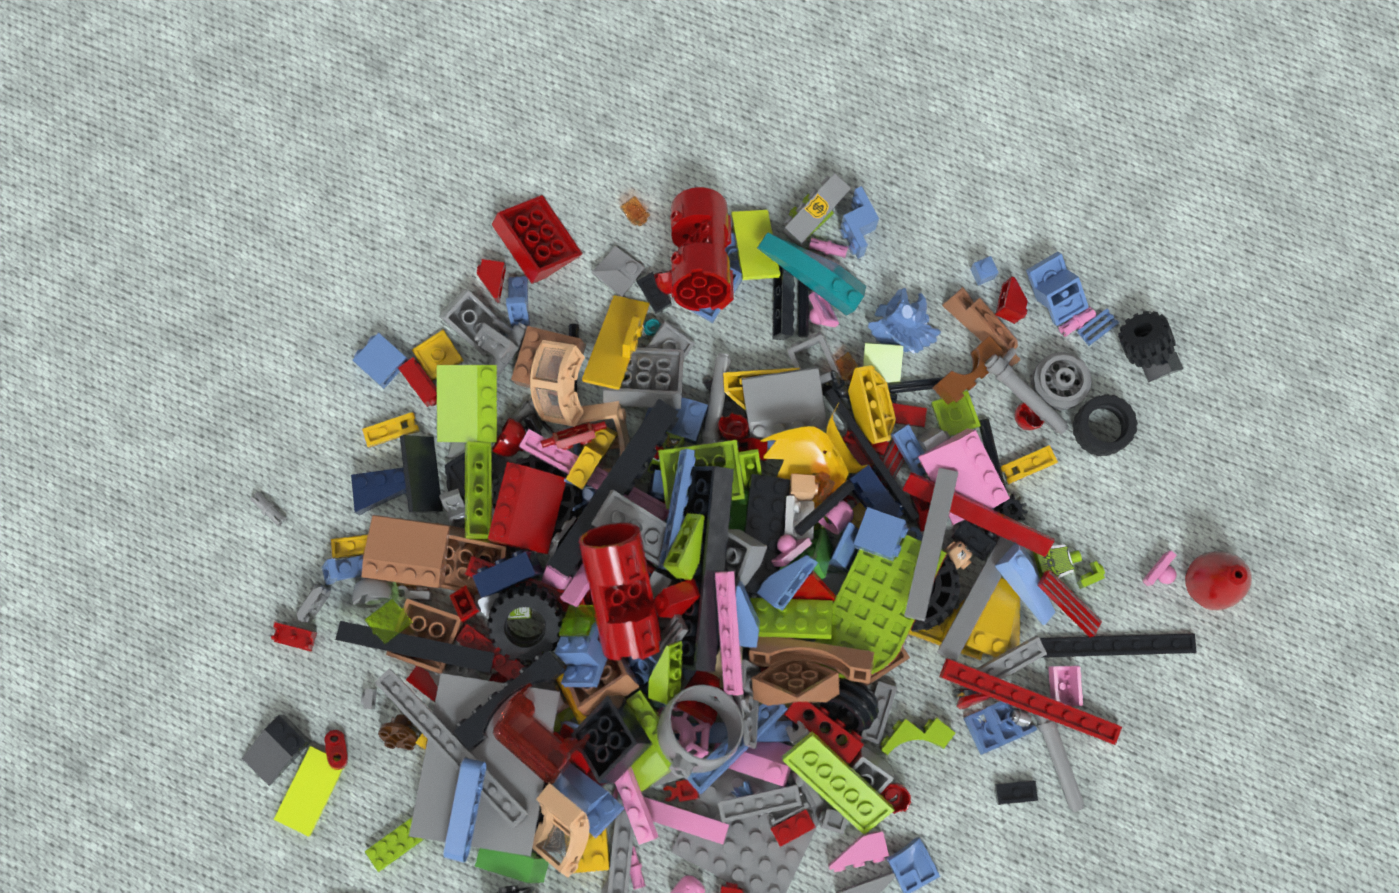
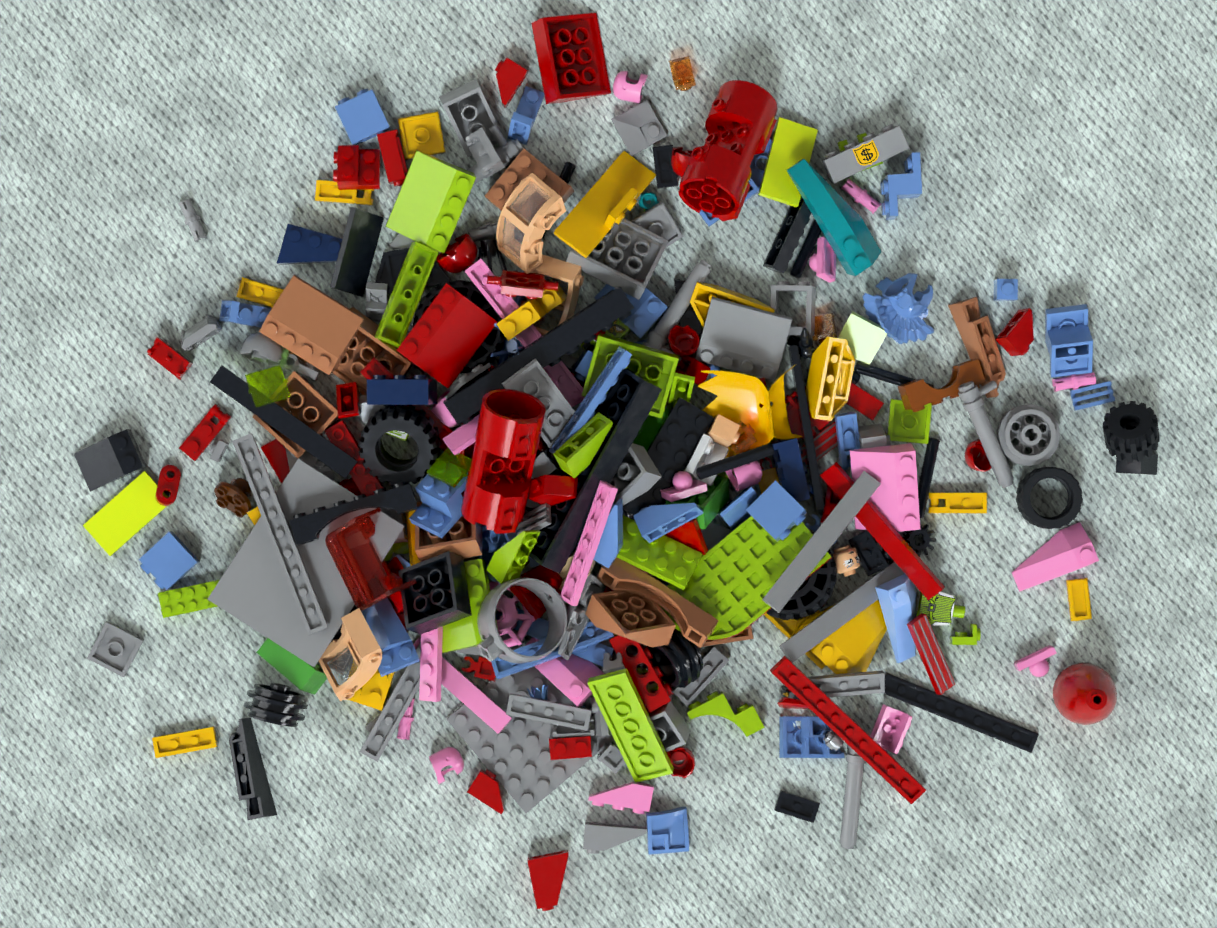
camera: 25 degrees right, 10 degrees up
(351, 689) = (204, 433): none -> red plate
(363, 818) = (168, 561): none -> medium blue piece
(392, 404) = (356, 168): none -> red plate
(464, 810) = (270, 598): medium blue beam -> none
(595, 244) = (627, 91): none -> bright pink helmet
(1138, 469) = (1062, 554): none -> bright pink wedge
(1171, 502) = (1078, 599): none -> yellow tile

